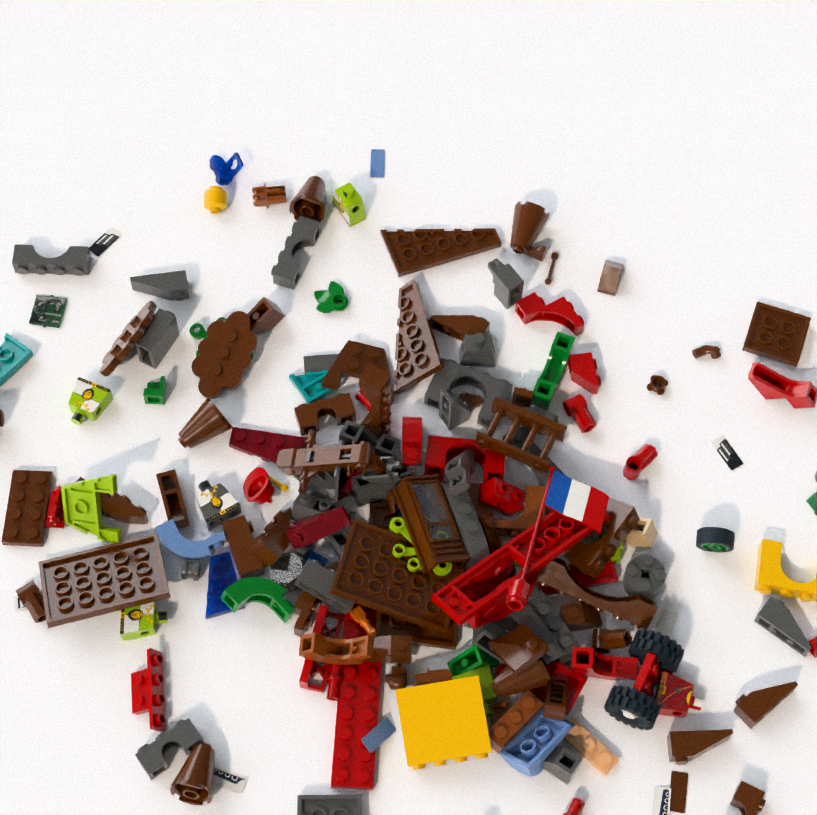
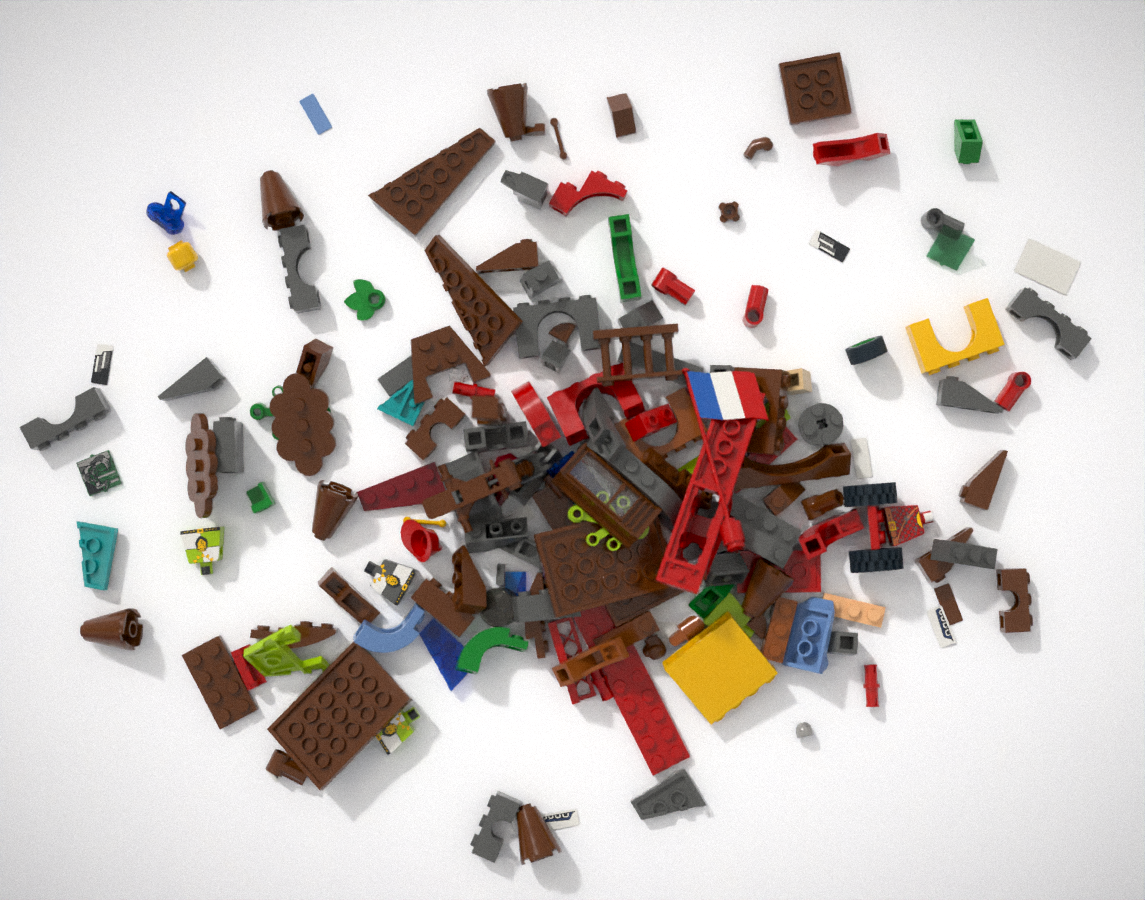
camera: 35 degrees left, 25 degrees up
(148, 691) = (444, 785): red bracket -> none
(191, 570) = (409, 655): dark grey wheel -> none
(268, 195) = (235, 216): dark orange arm -> none
(317, 527) = (501, 554): dark red slope -> none
(347, 199) = (319, 185): lime torso -> none
(360, 617) = (591, 614): orange piece -> none
(378, 735) = (667, 708): medium blue sticker -> none
(519, 648) = (754, 572): reddish brown plate -> none
(522, 397) = (613, 307): reddish brown plate -> none
(555, 701) = (809, 603): reddish brown slope -> none
(583, 371) = (653, 240): red slope -> none
(724, 754) = (964, 554): none -> dark grey arch

